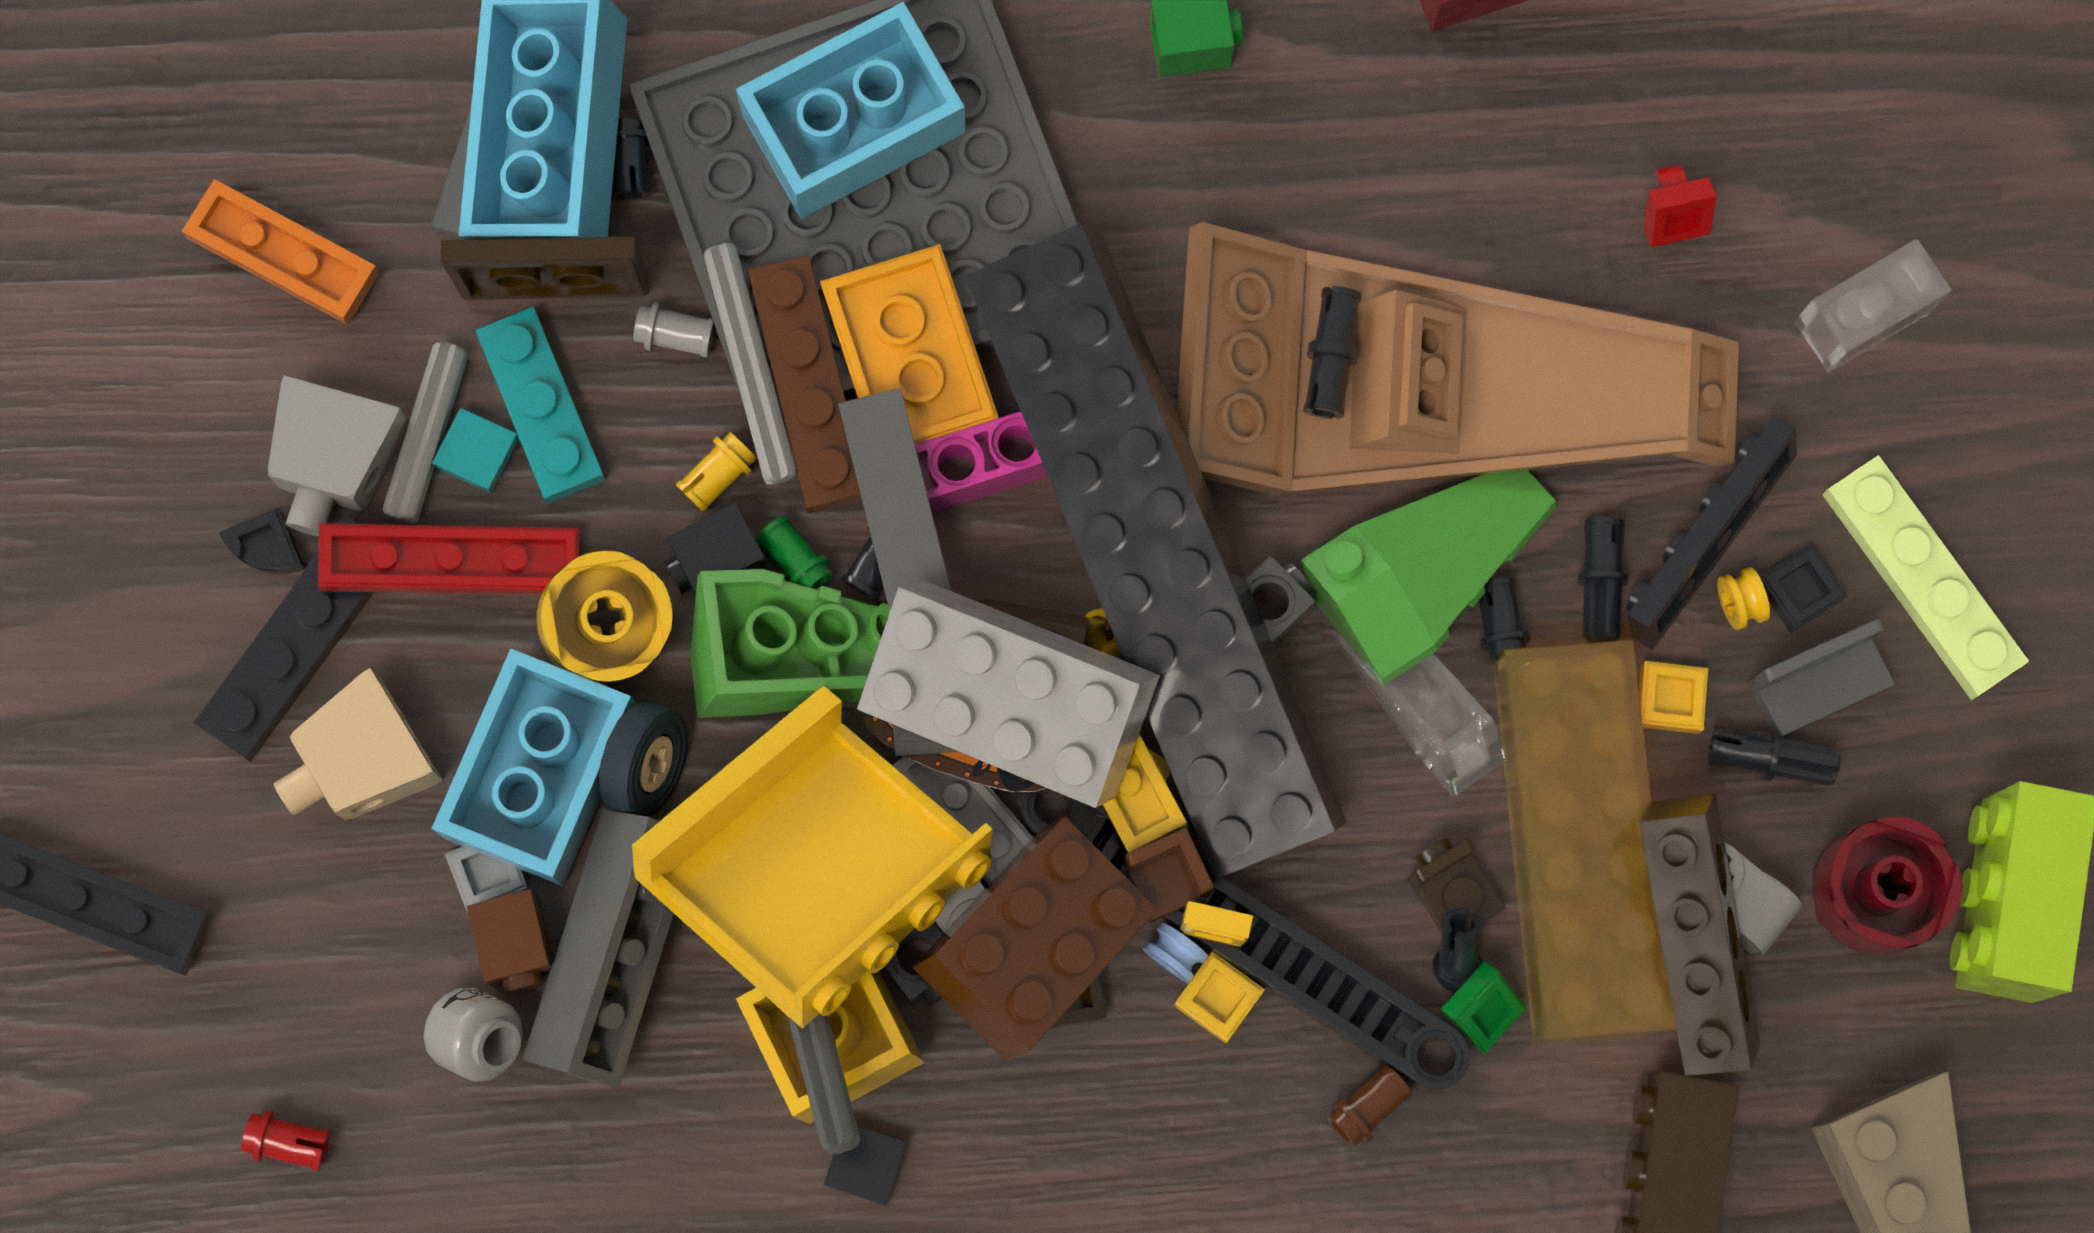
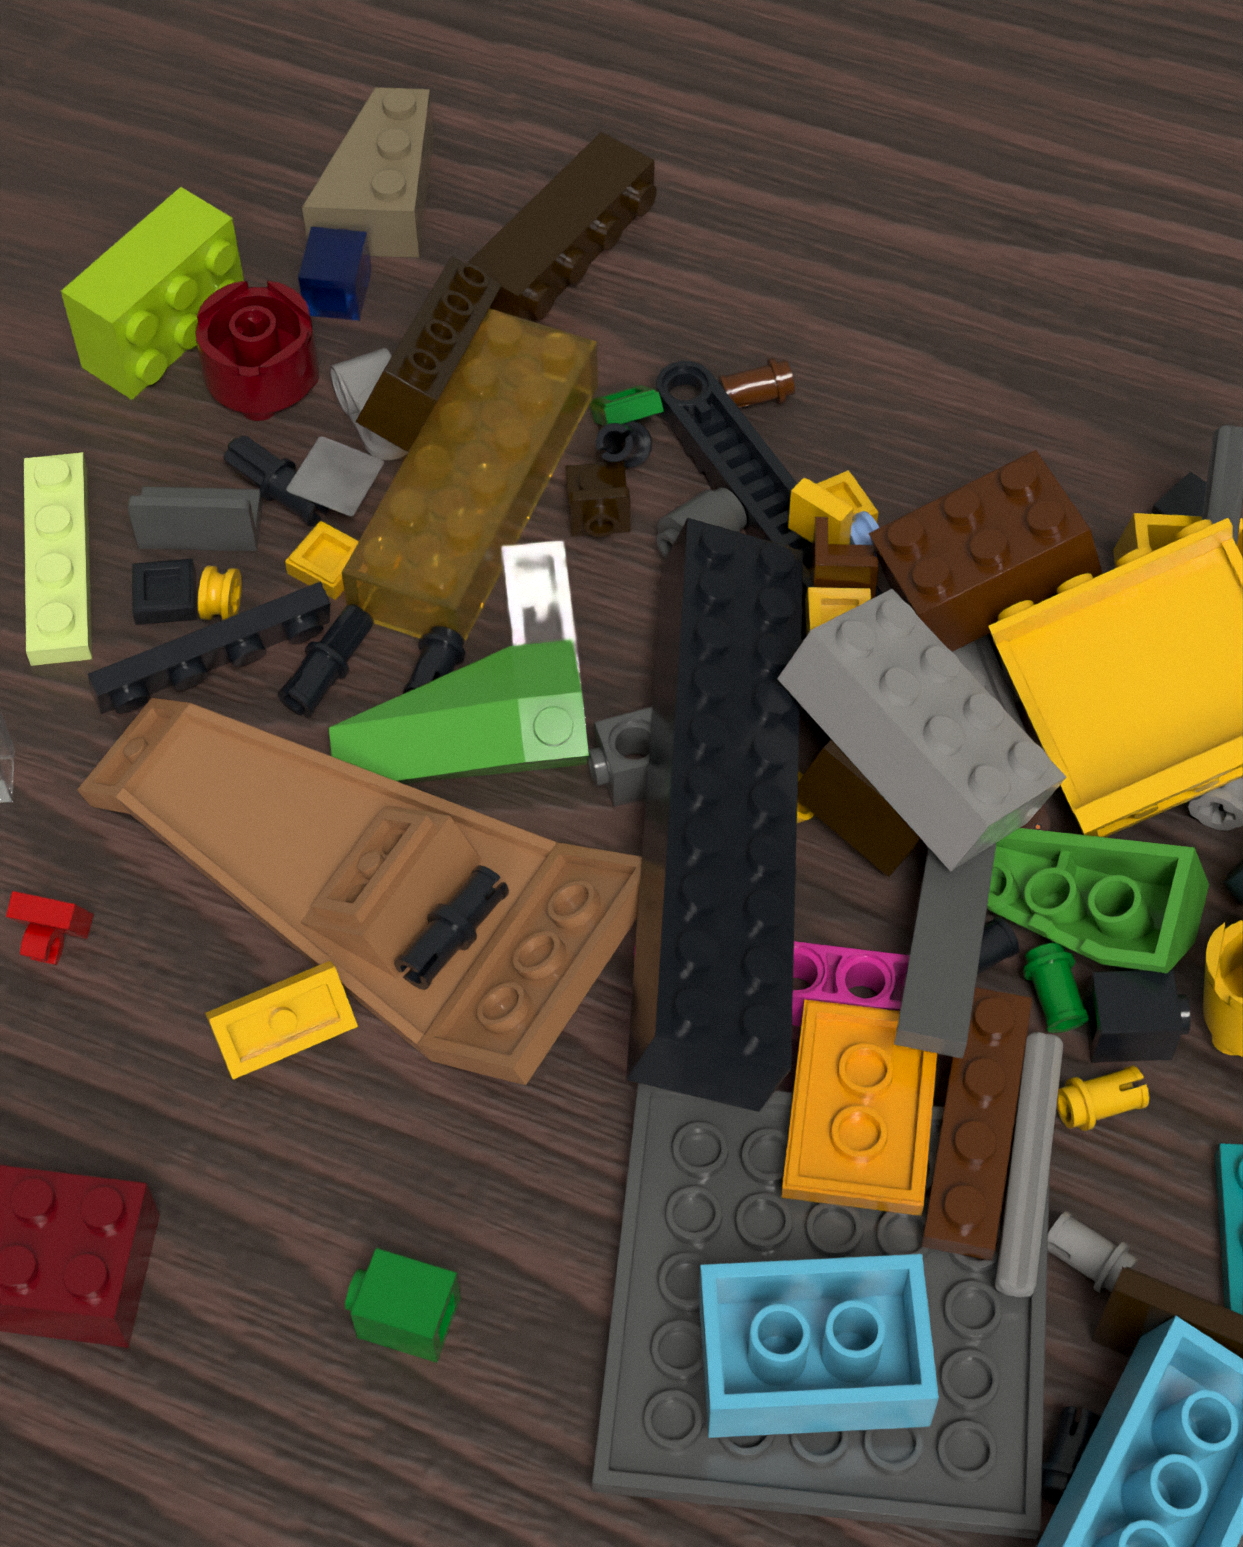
camera: 150 degrees left, 20 degrees down
(1336, 893) = (709, 506): none -> dark grey brick
(1429, 215) = (281, 1019): none -> yellow plate
(1724, 765) = (335, 476): none -> clear sticker
(1875, 1039) = (335, 273): none -> clear blue brick

